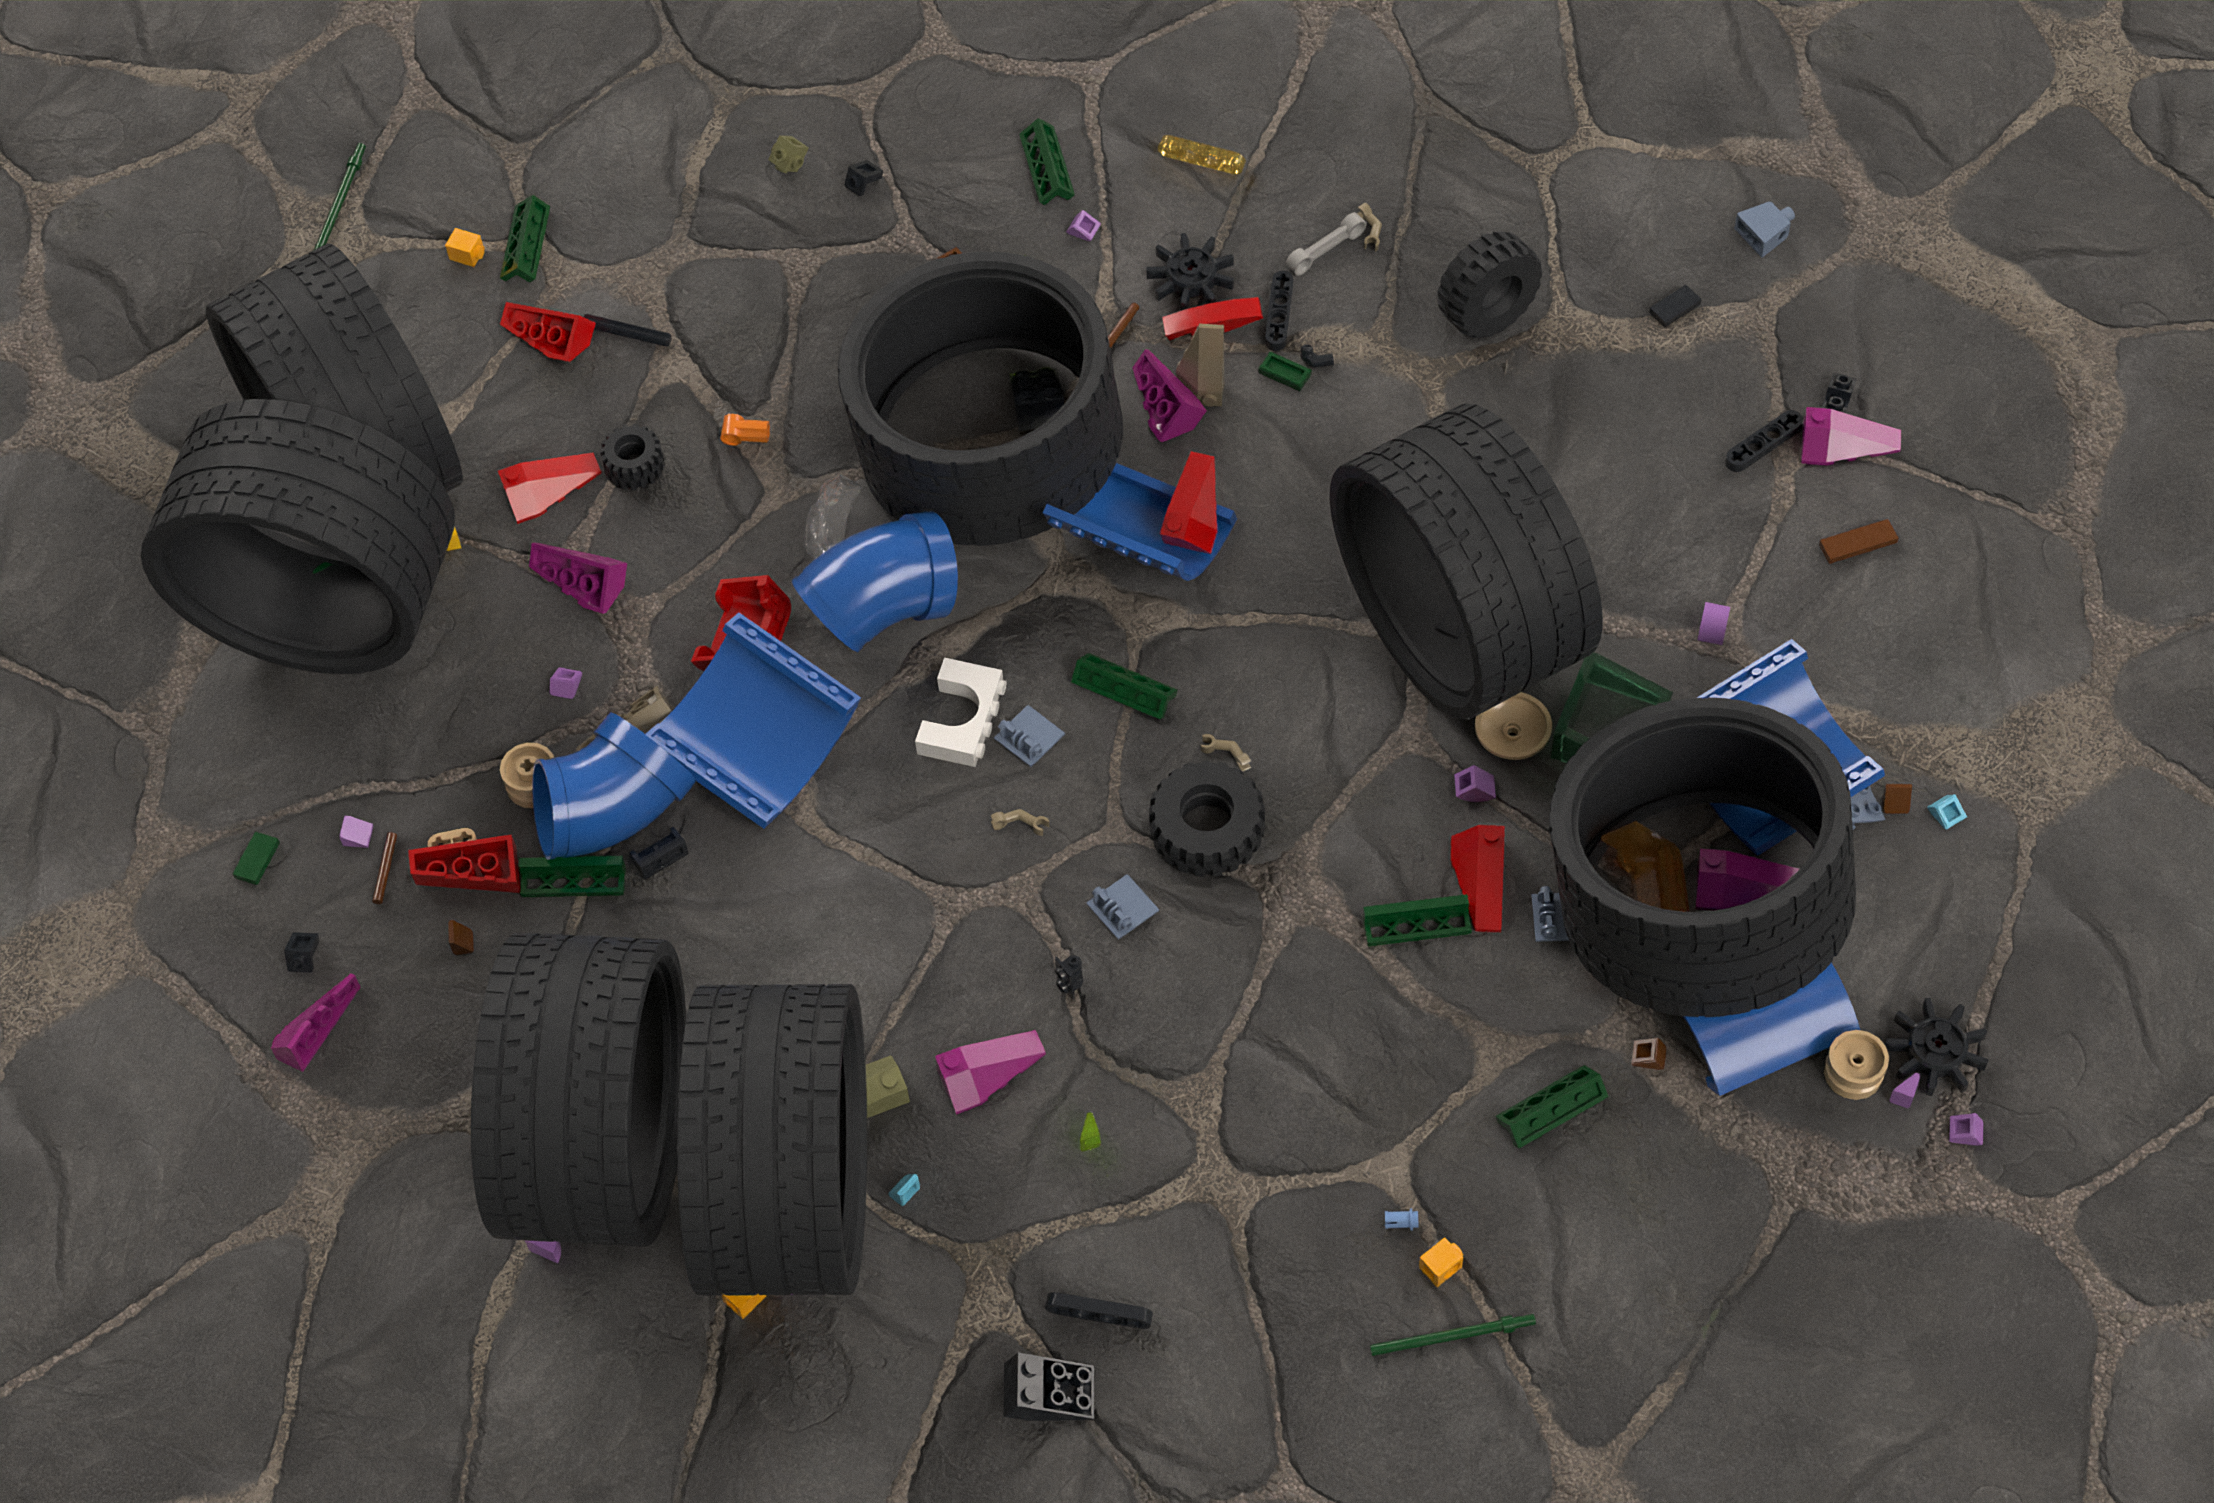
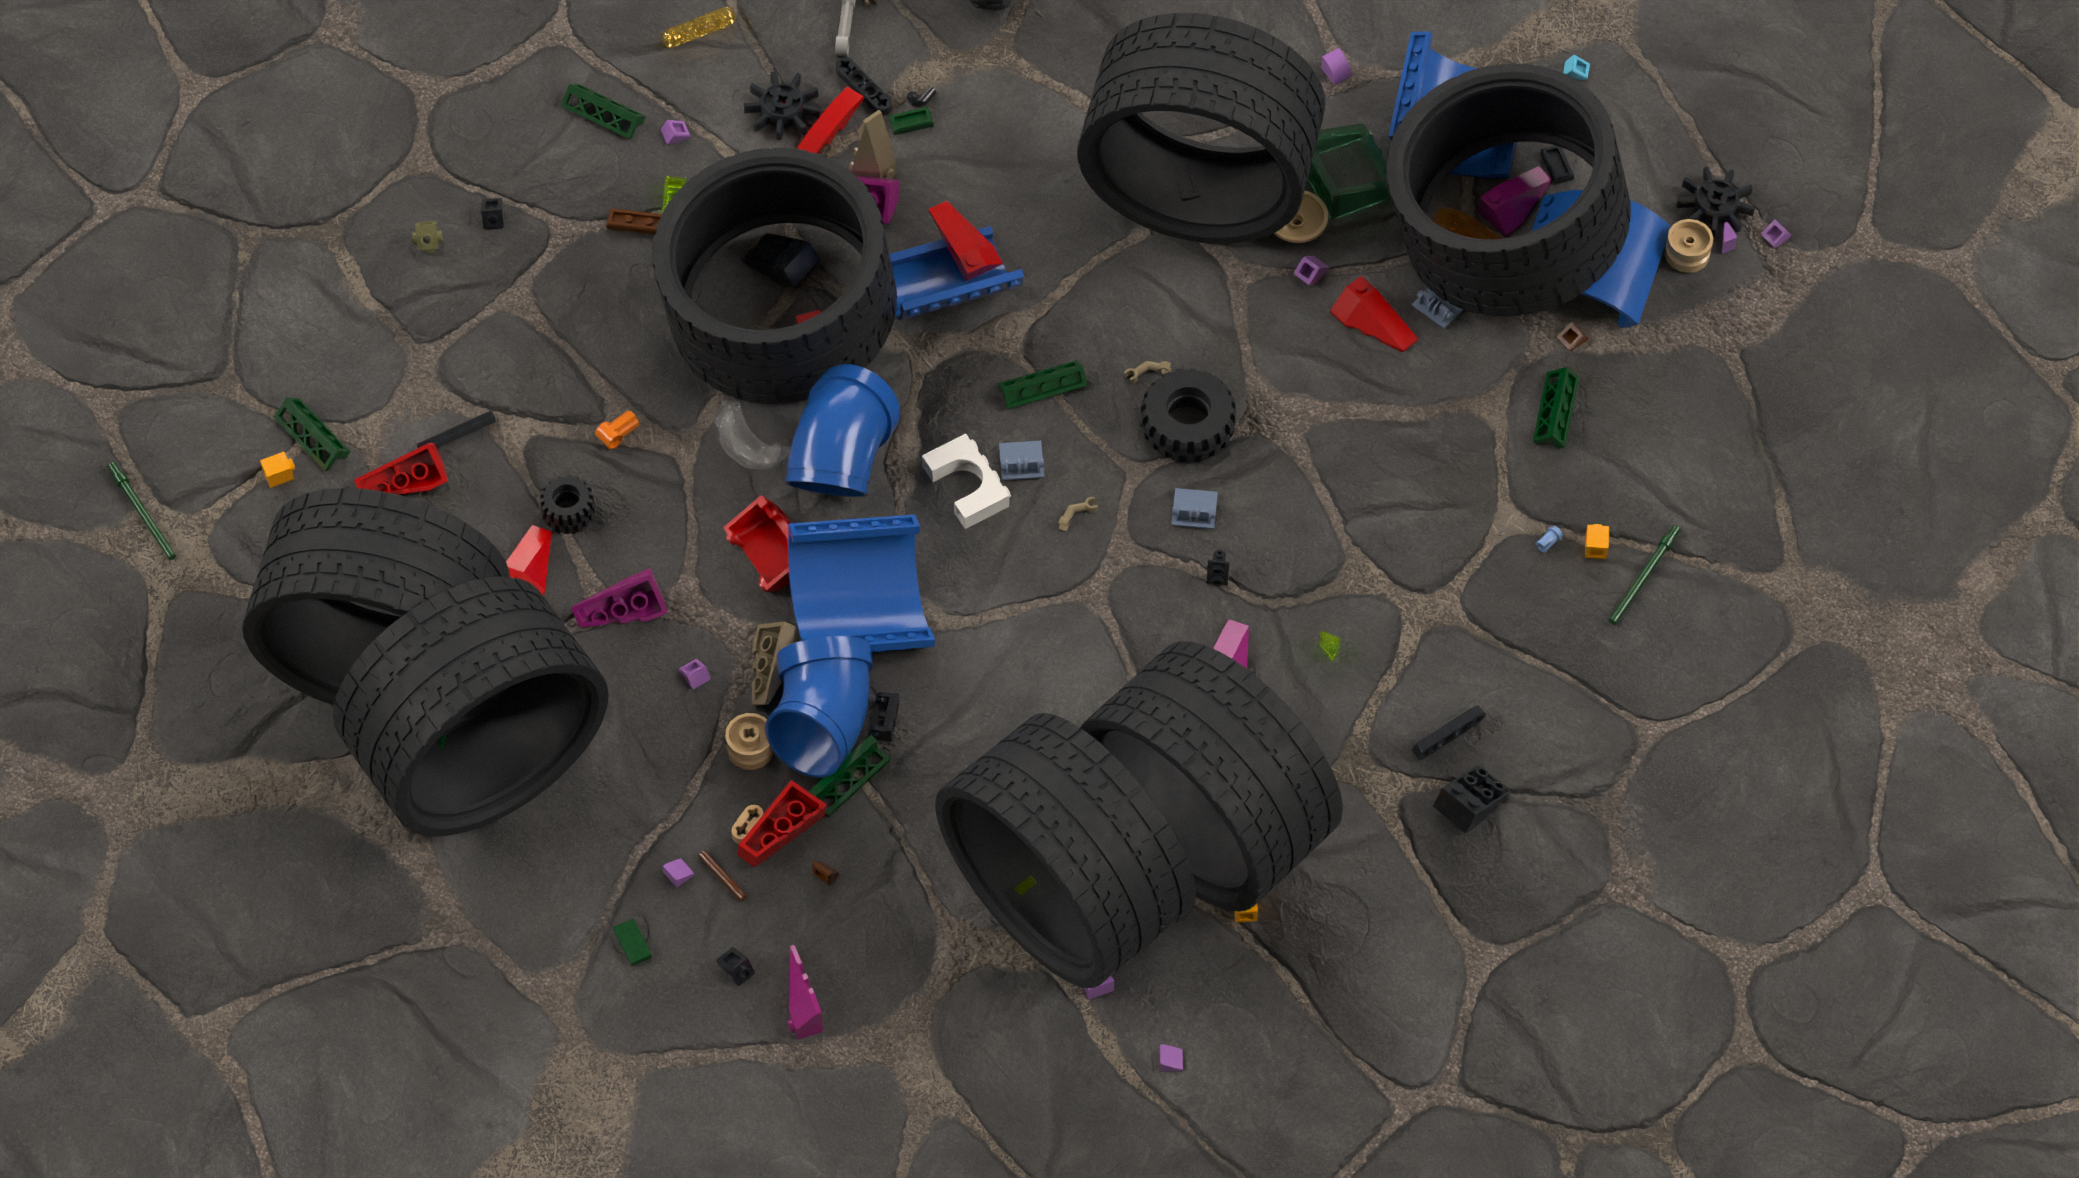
camera: 50 degrees left, 0 degrees up
(525, 1367) = (1171, 1058): none -> medium lavender slope
(1413, 912) = (1364, 366): dark green fence -> none

